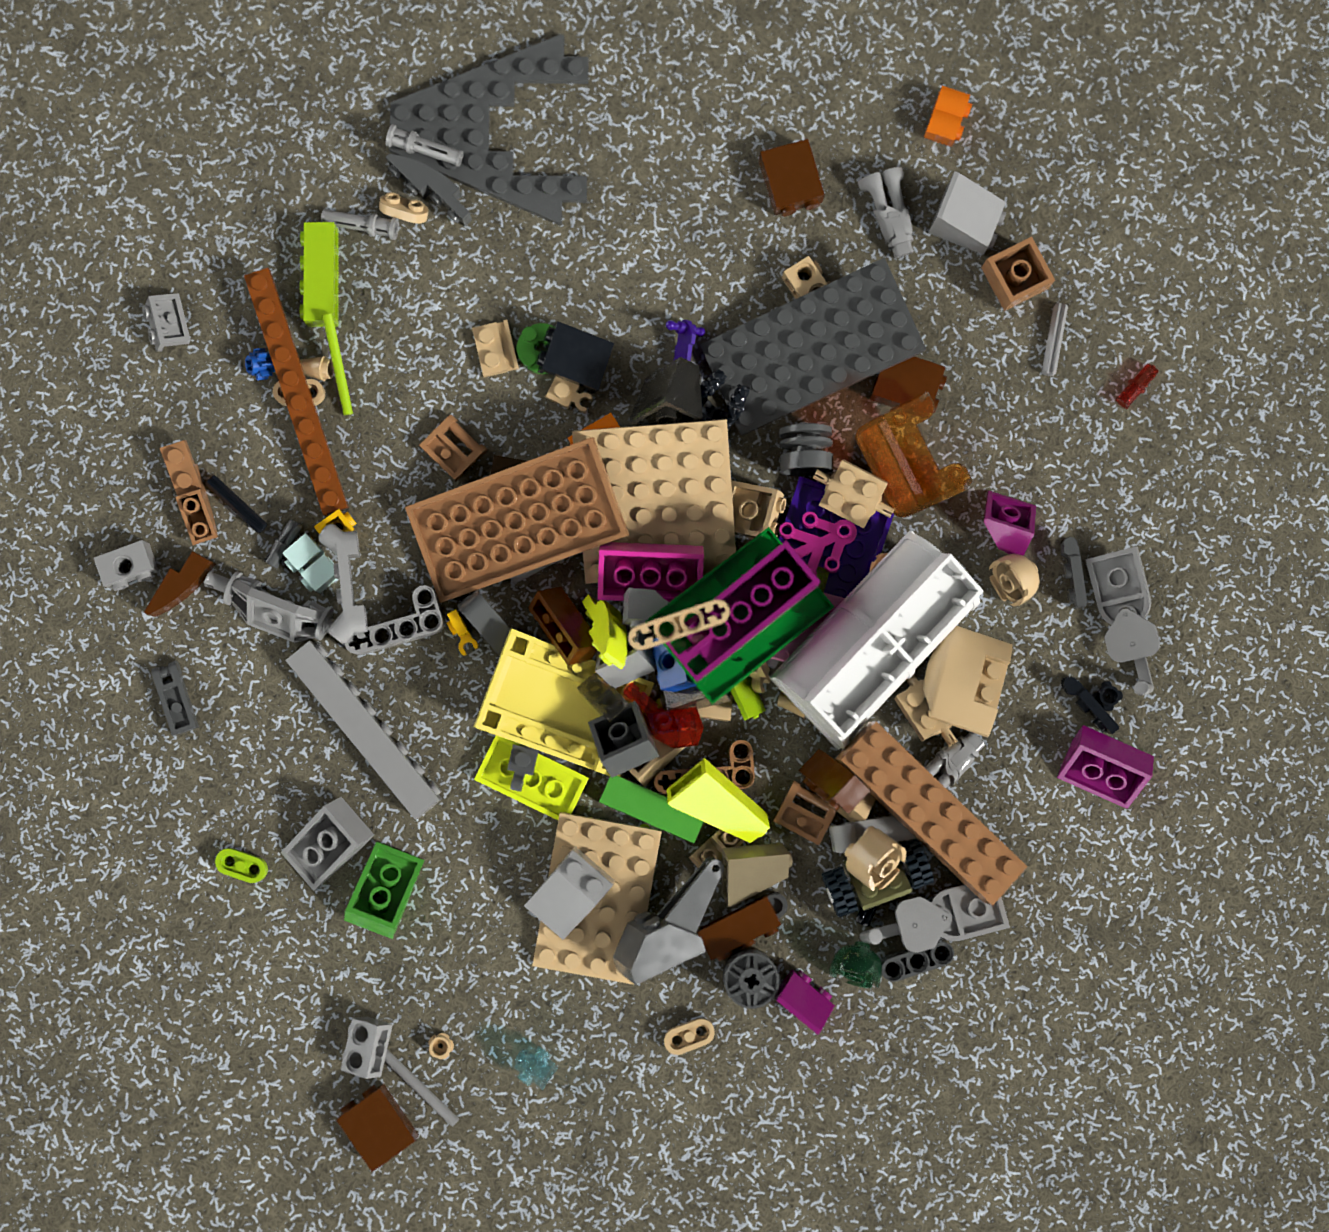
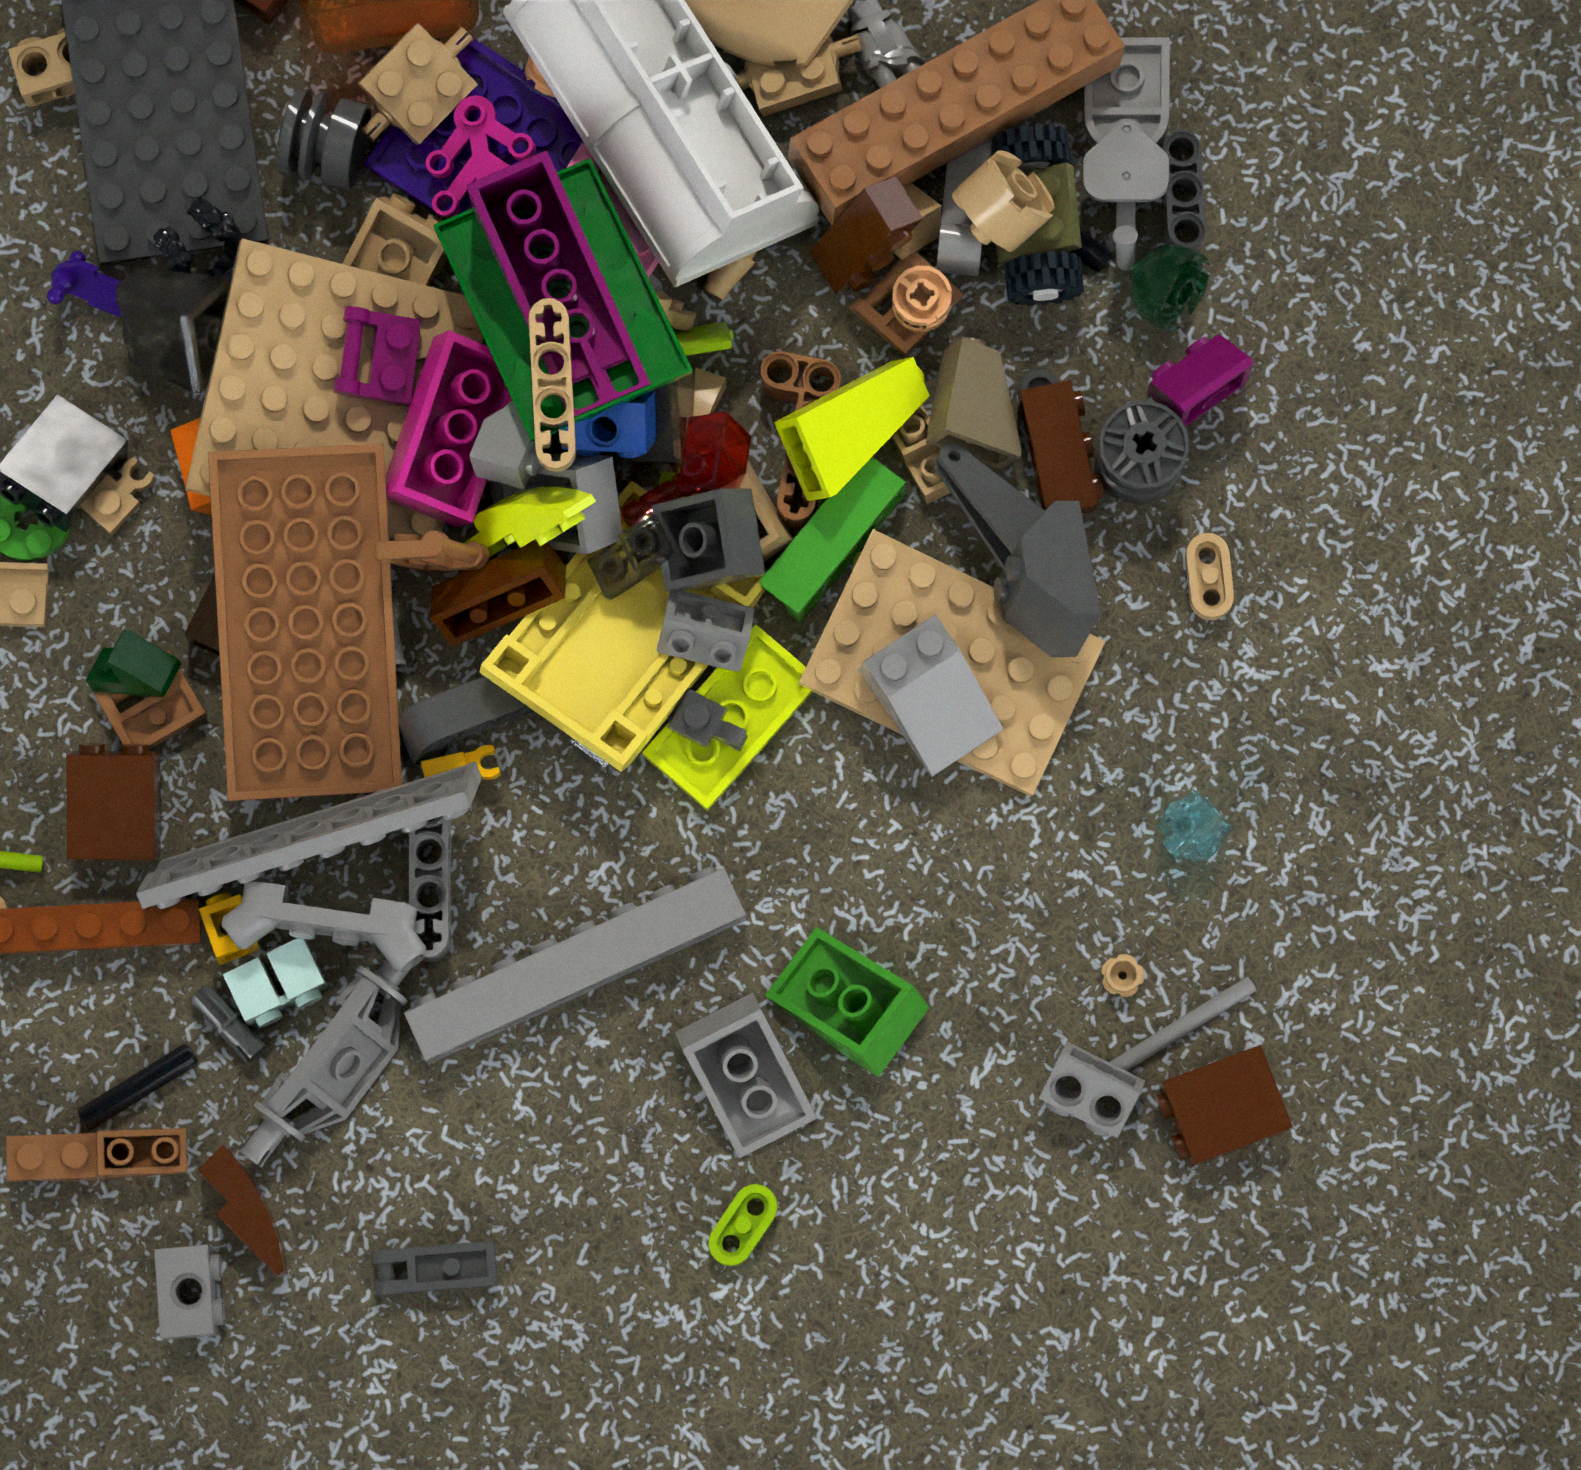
camera: 70 degrees left, 5 degrees down
(388, 444) = (113, 803): none -> reddish brown brick
(392, 560) = (316, 833): none -> light grey plate
(467, 432) = (133, 668): none -> dark green slope
(573, 581) = (432, 553): none -> medium nougat plate
(574, 751) = (705, 630): none -> light grey bracket
(684, 525) = (390, 361): none -> magenta plate
(807, 823) = (921, 298): none -> light nougat wheel

